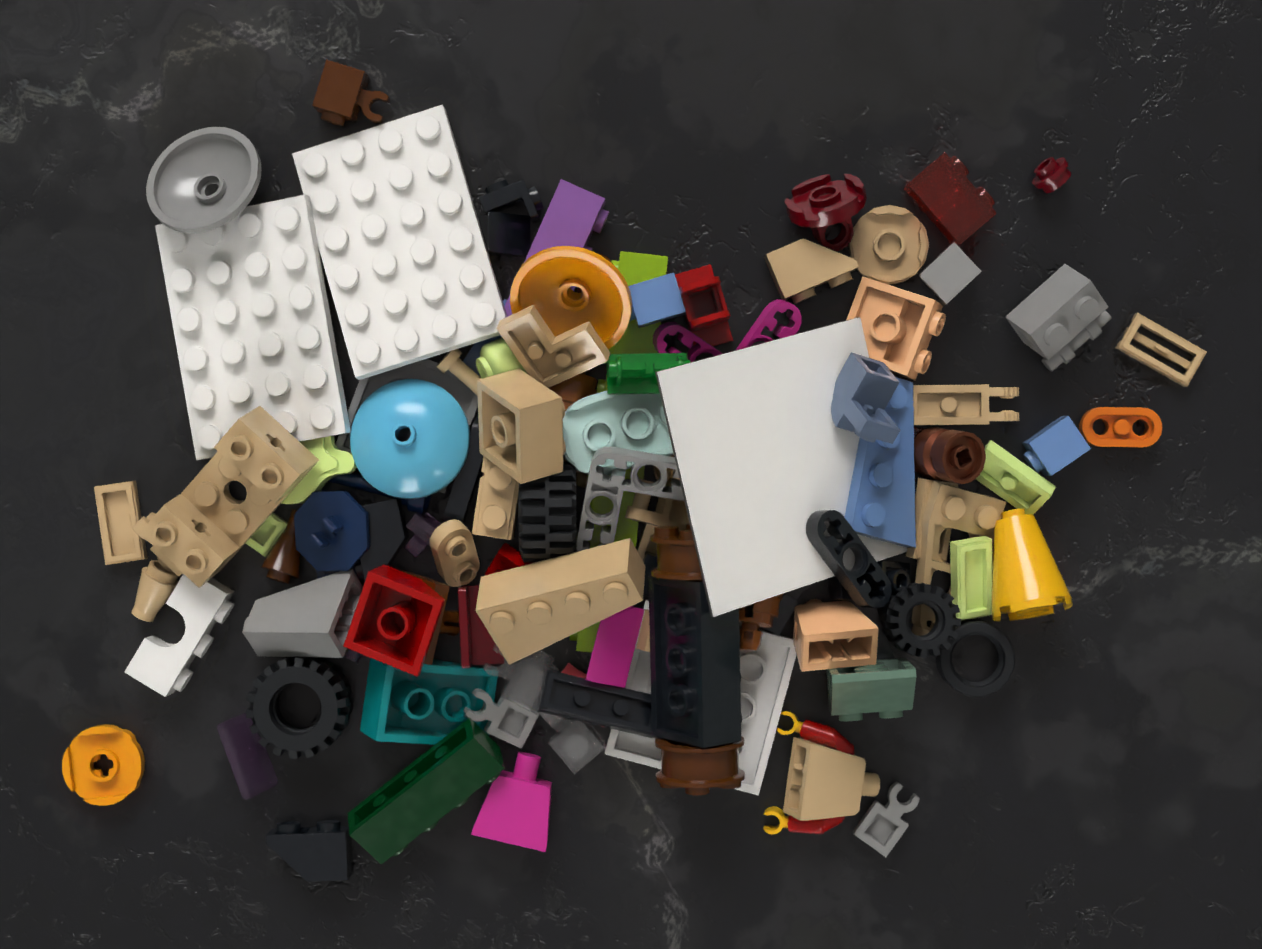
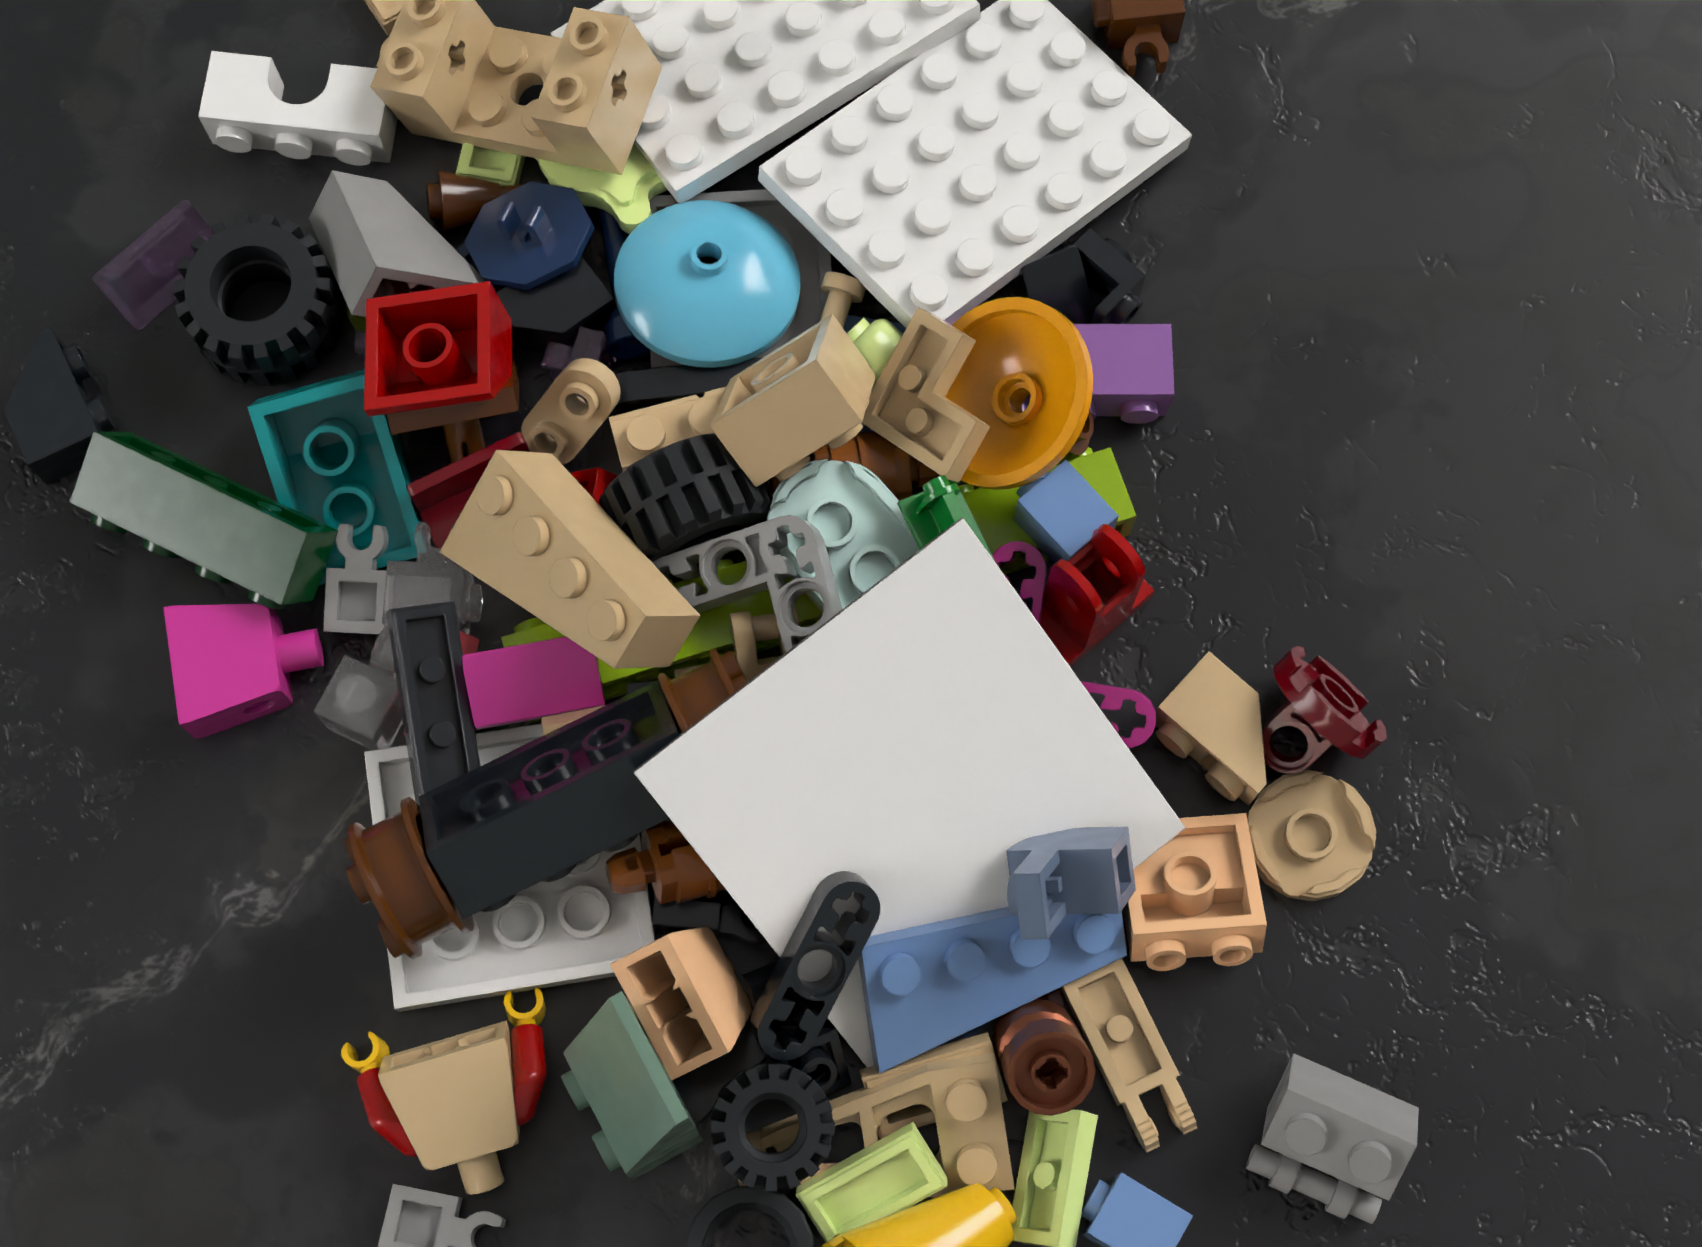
camera: 65 degrees right, 15 degrees down
(90, 783) = (92, 115): light orange plate -> none
(153, 591) = (349, 46): tan cone -> none
(949, 273) = (1313, 938): light grey panel -> none
(951, 199) = (1425, 891): clear red brick -> none
(1051, 174) = (1539, 1026): dark red plate -> none

